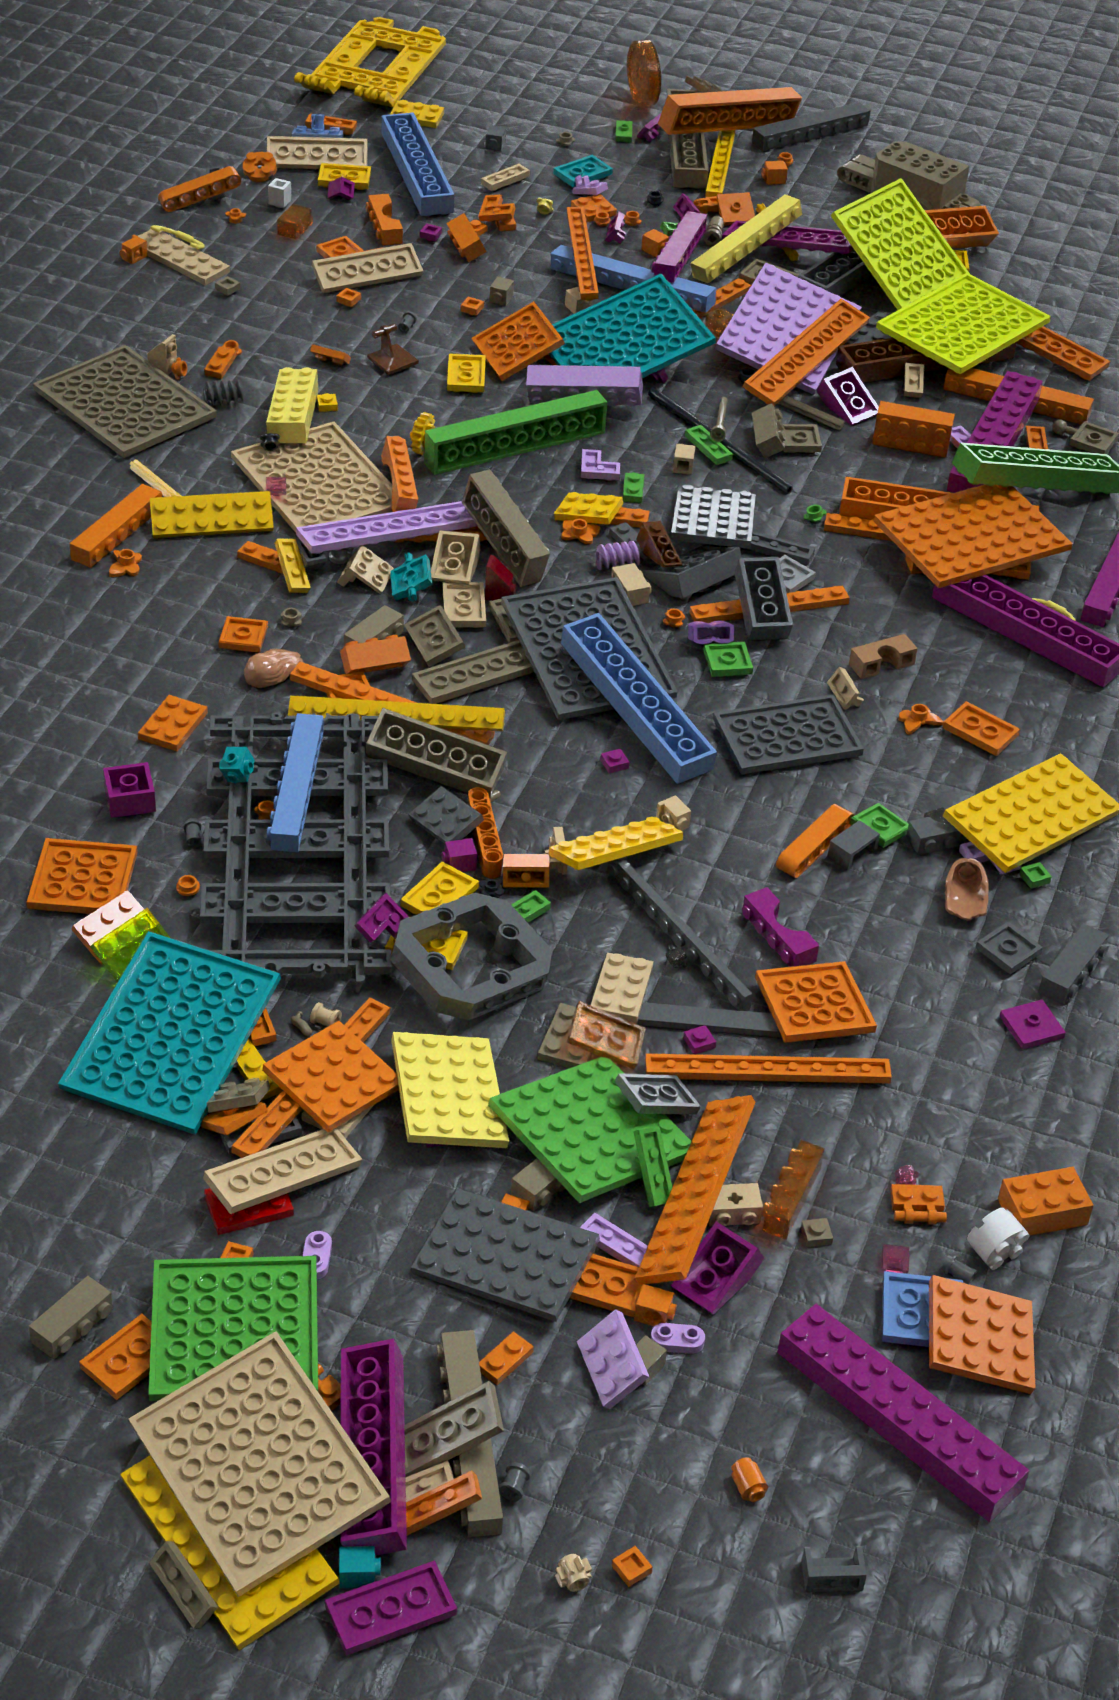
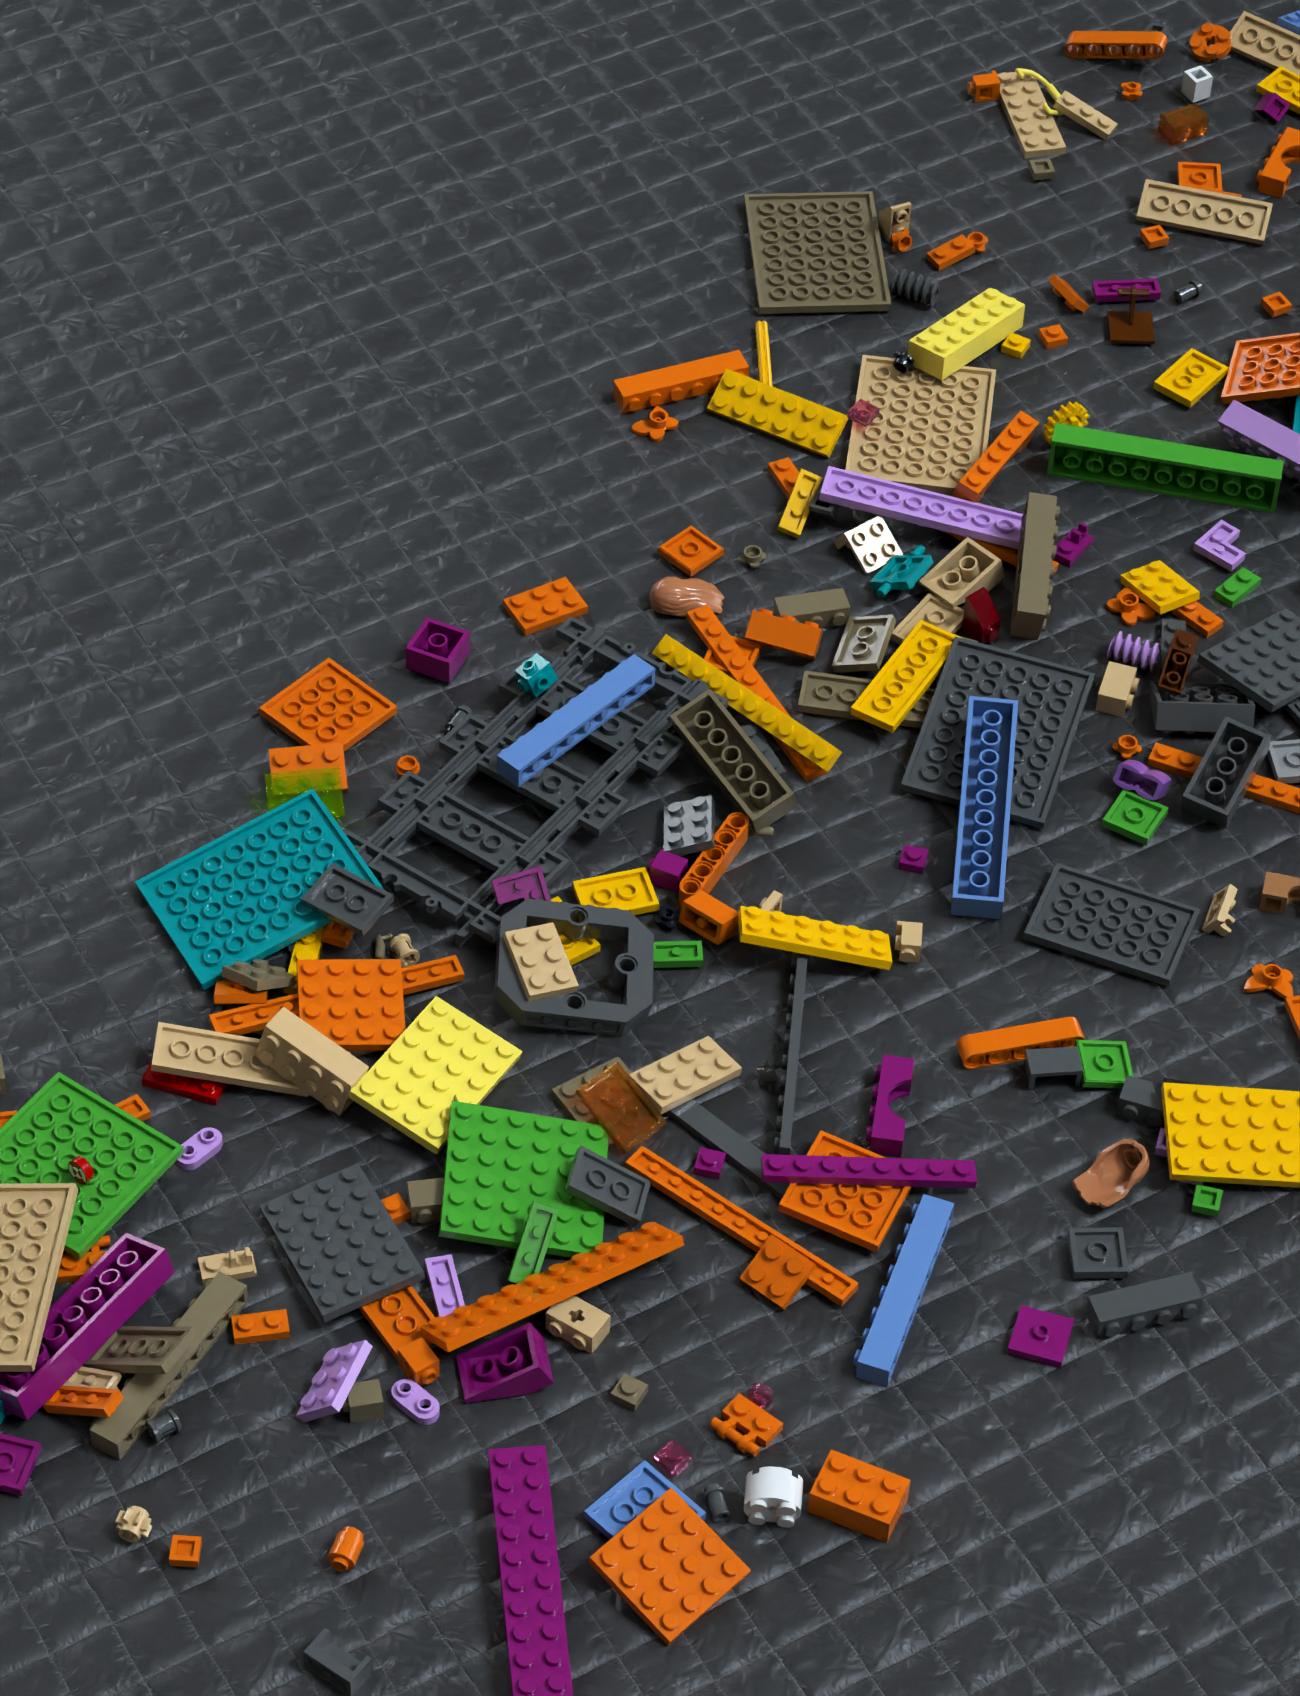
camera: 40 degrees right, 5 degrees up
(223, 240) = (1085, 115): none -> tan plate
(259, 1322) = (80, 1170): none -> red tile
(263, 995) = (347, 899): none -> dark grey plate
(346, 386) = (1053, 336): none -> orange plate
(354, 1131) = (310, 1060): none -> tan brick
(361, 338) = (1107, 290): none -> magenta plate
(428, 1331) = (234, 1264): none -> tan plate
(454, 960) = (540, 961): none -> tan plate
(490, 642) = (904, 677): none -> yellow plate
(793, 1189) = (642, 1341): clear orange brick -> none
(816, 979) = (868, 1171): none -> magenta plate
(830, 1084) = (778, 1272): none -> orange plate
(921, 1046) = (904, 1290): none -> medium blue brick

